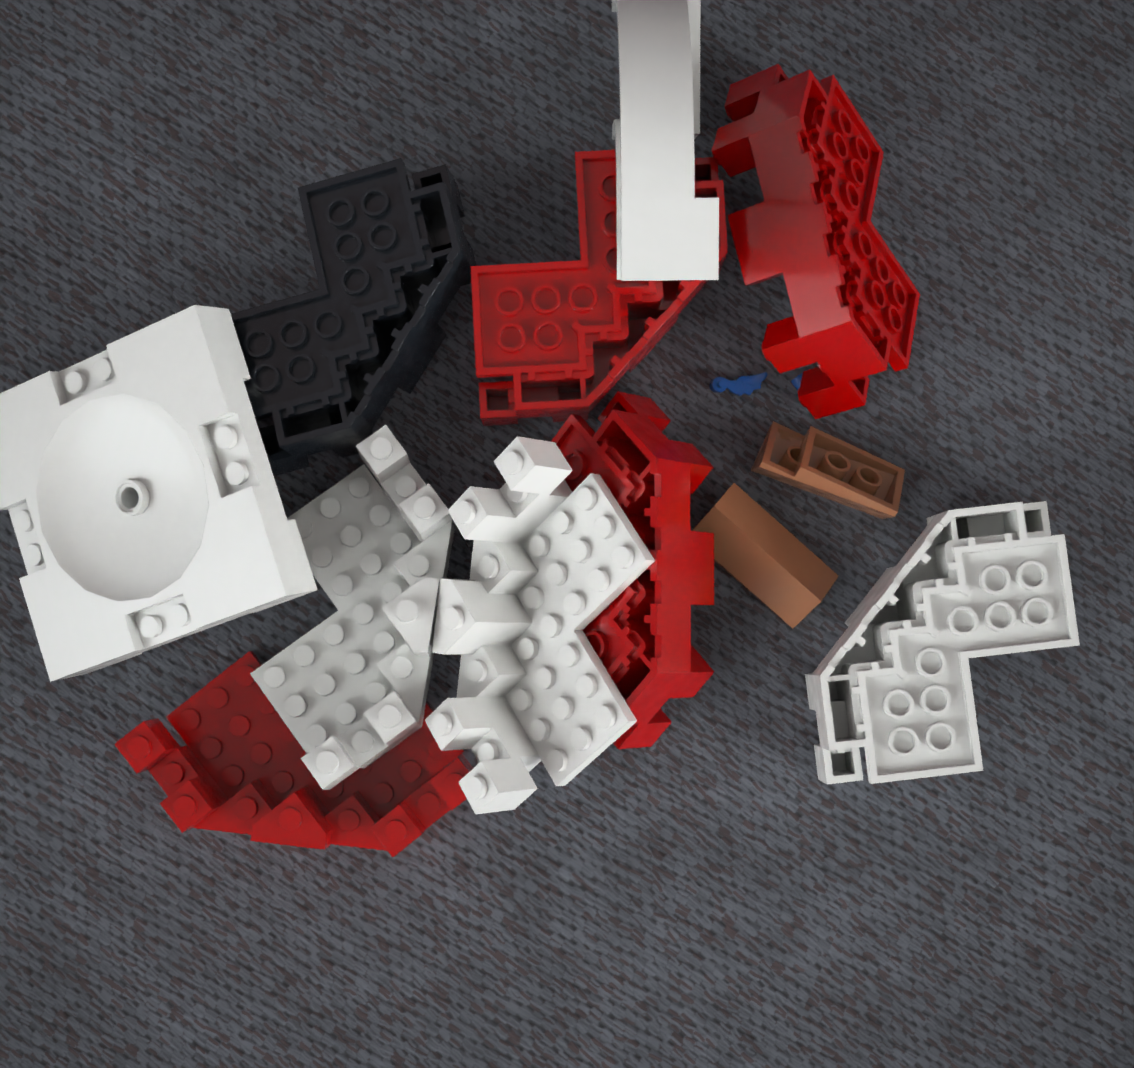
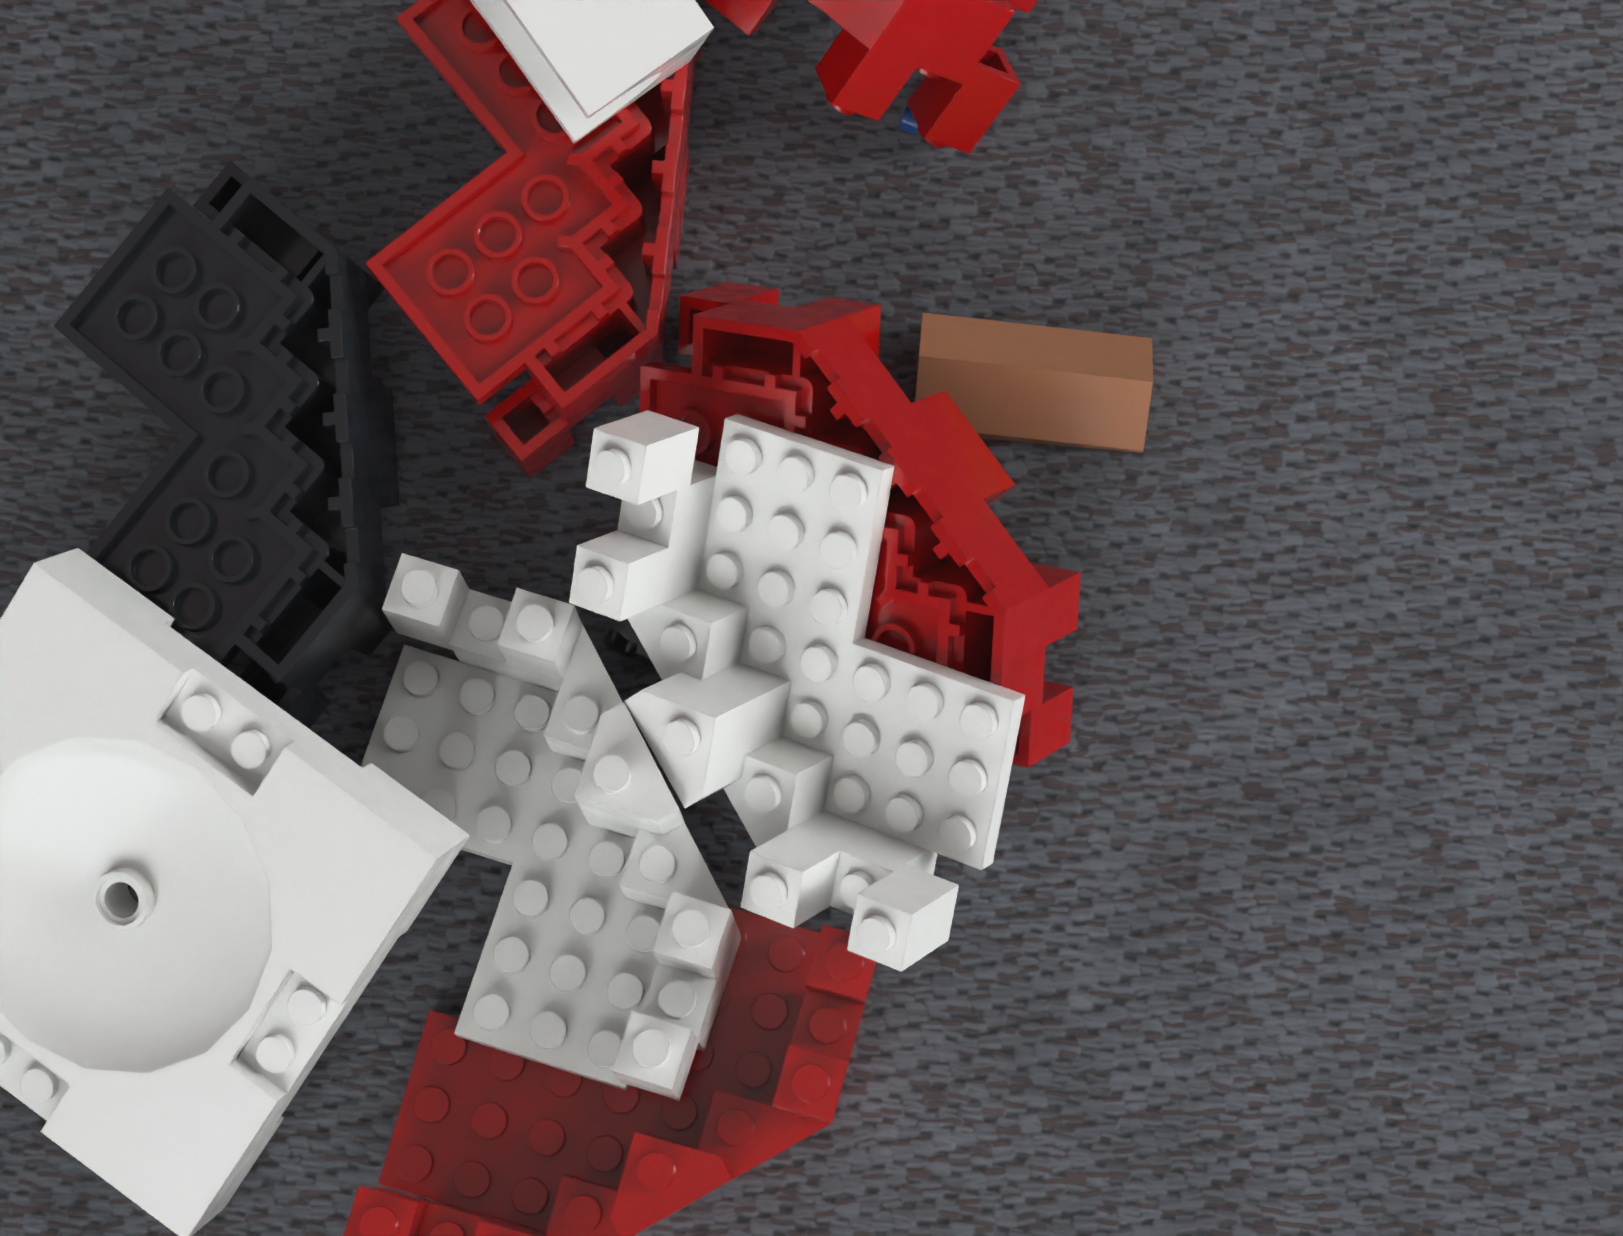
camera: 35 degrees left, 5 degrees down
(740, 386) = (838, 181): blue piece -> none
(831, 470) = (1039, 207): nougat slope -> none
(901, 669) = (1317, 378): white brick -> none

